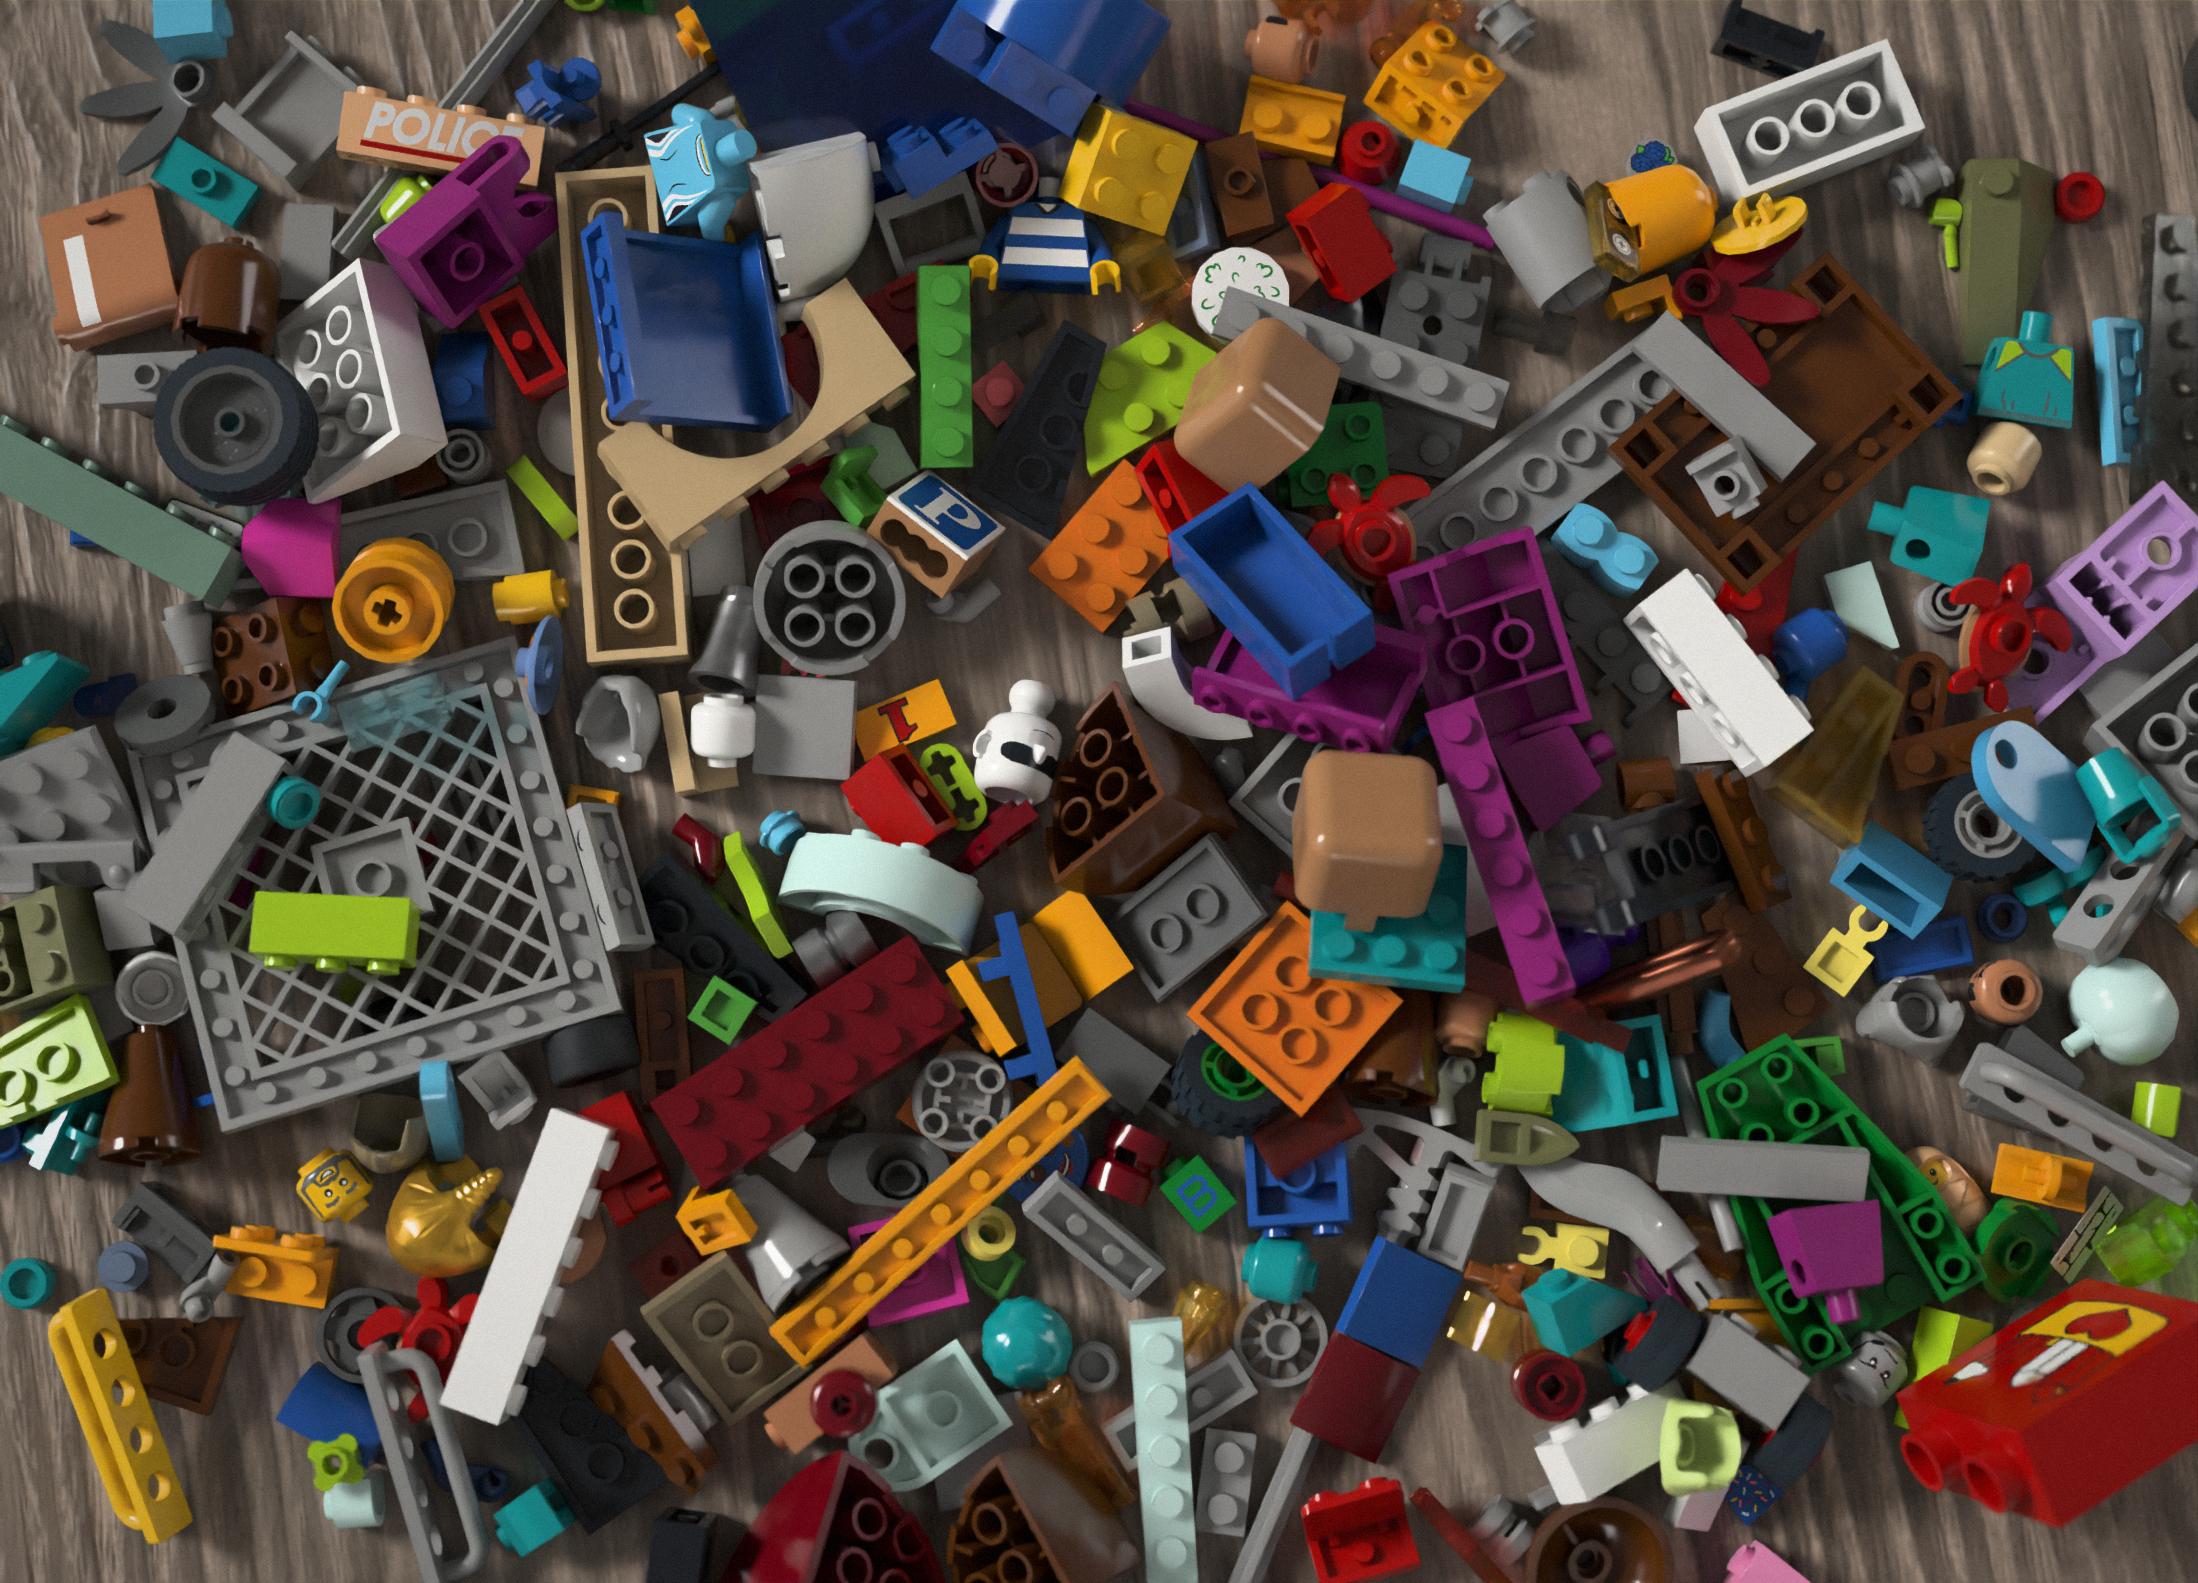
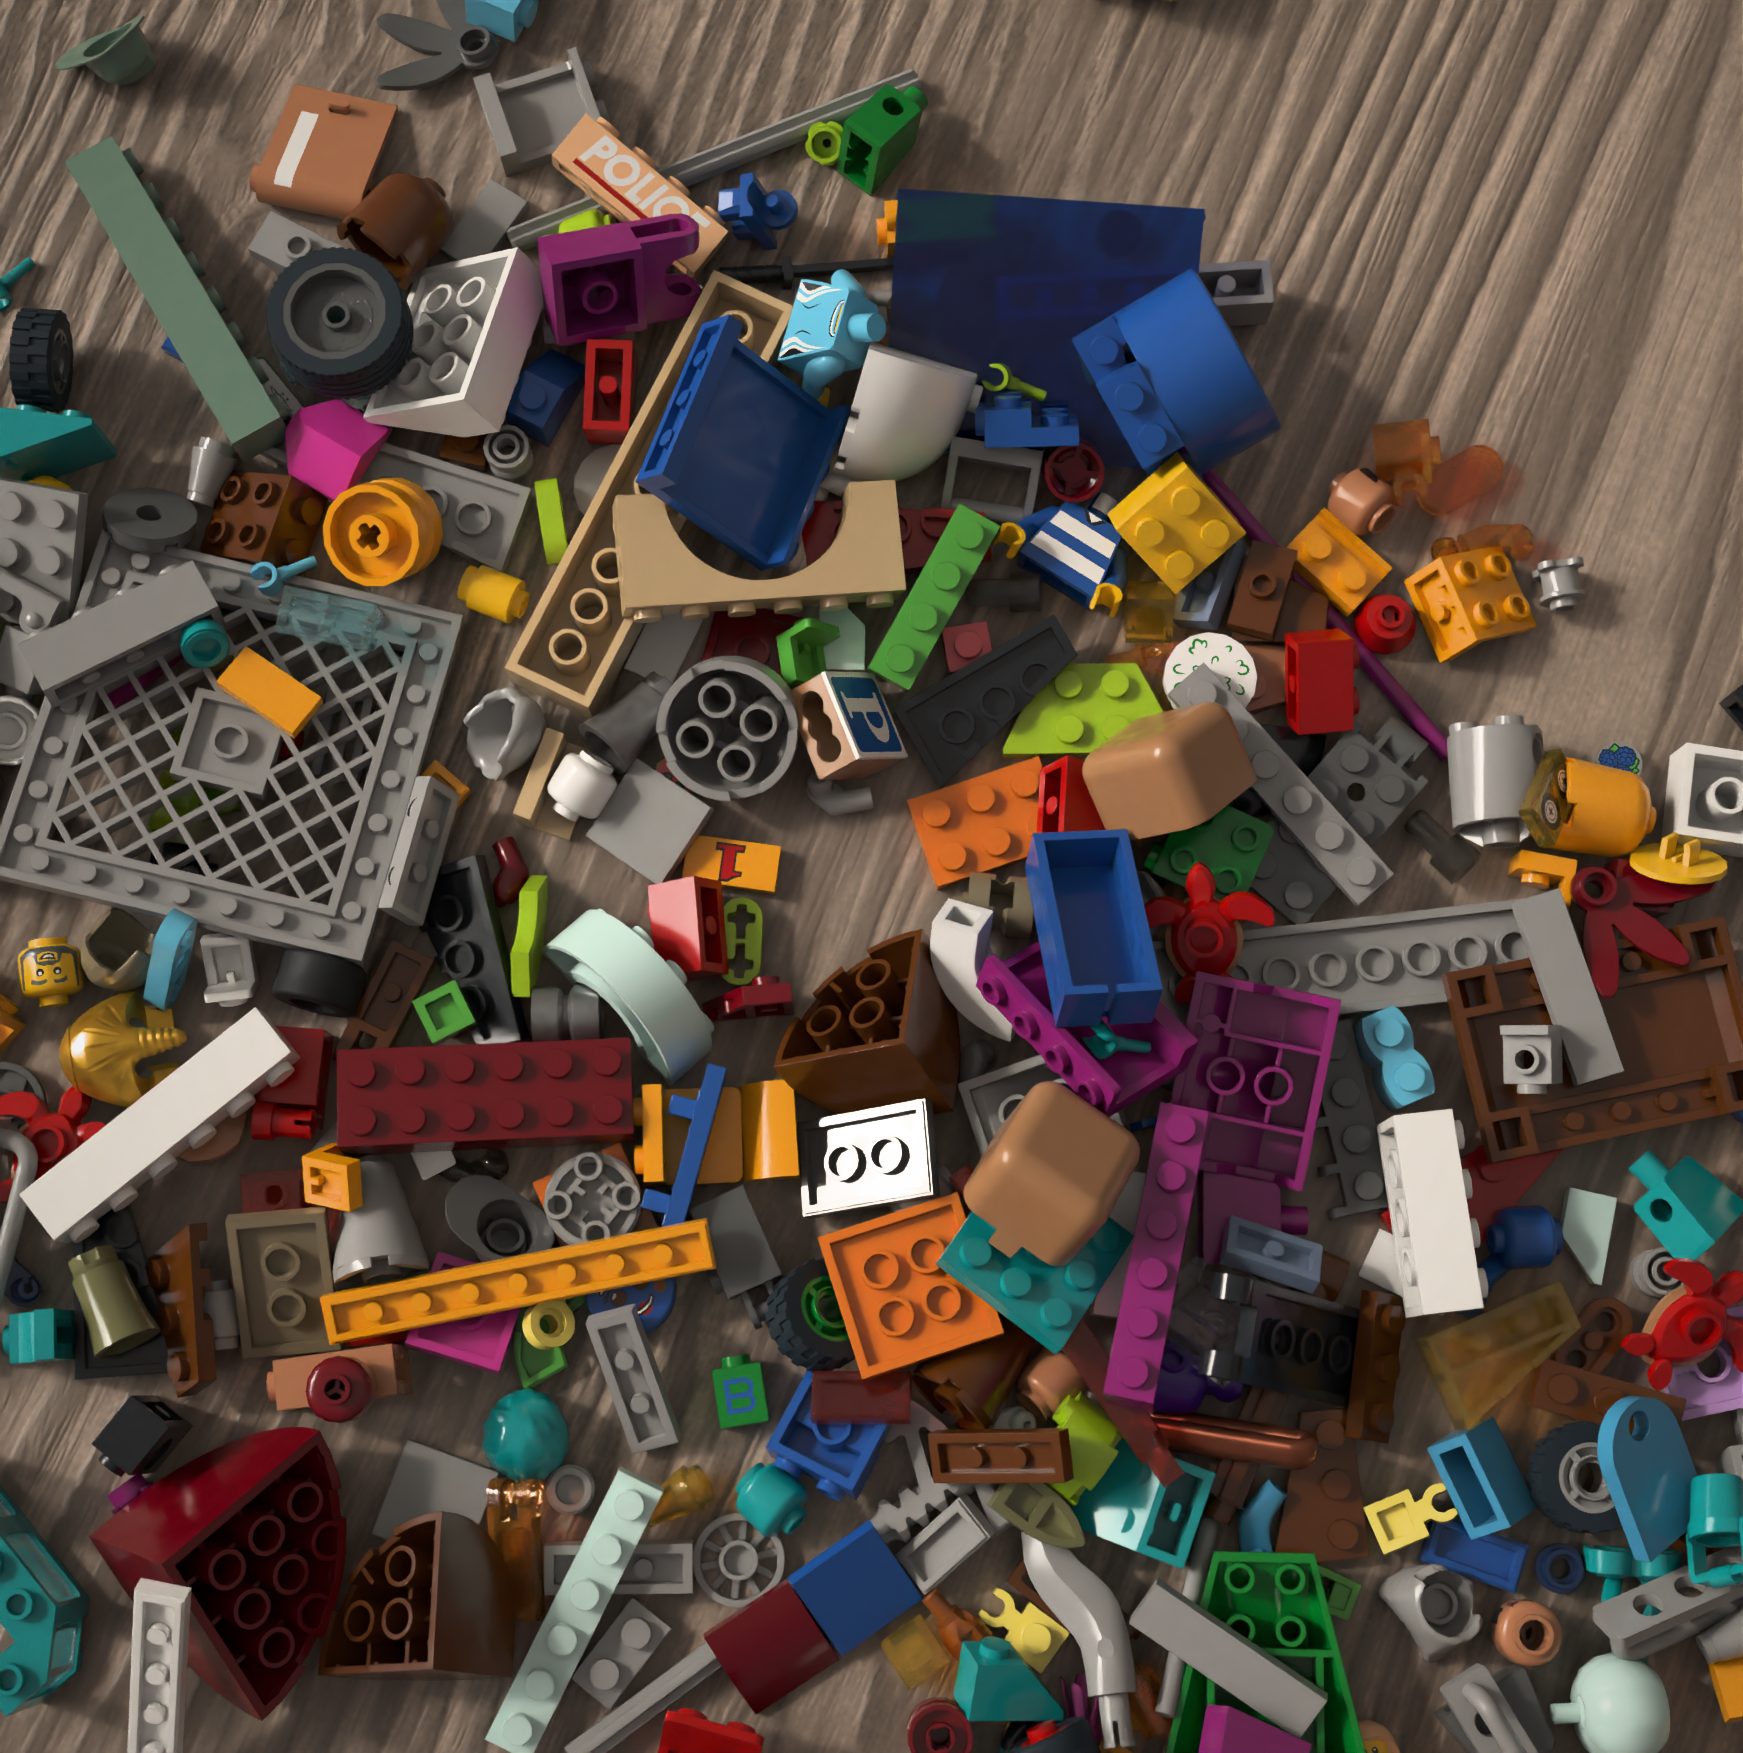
camera: 30 degrees right, 5 degrees down
(111, 694) = (120, 479): clear blue piece -> none
(206, 183) = (439, 130): teal plate -> none
(334, 932) = (172, 764): lime brick -> none
(381, 811) = (269, 692): none -> light orange tile
(542, 664) = (469, 651): medium blue dish -> none
(580, 1449) = (110, 1303): none -> olive plant
(781, 831) = (580, 896): medium azure plate -> none
(900, 121) = (1013, 383): none -> lime hand
(933, 1418) = (410, 1451): light aqua tile -> none
(1019, 747) = (813, 939): white piece -> none
(1120, 1179) = (683, 1343): dark red wheel -> none
(1344, 687) = (1106, 1042): none -> teal hand
(1435, 177) = (1428, 674): medium azure brick -> none
(1463, 1111) = (1001, 1455): none -> reddish brown plate
(1598, 791) = (1271, 1254): none -> sand blue plate

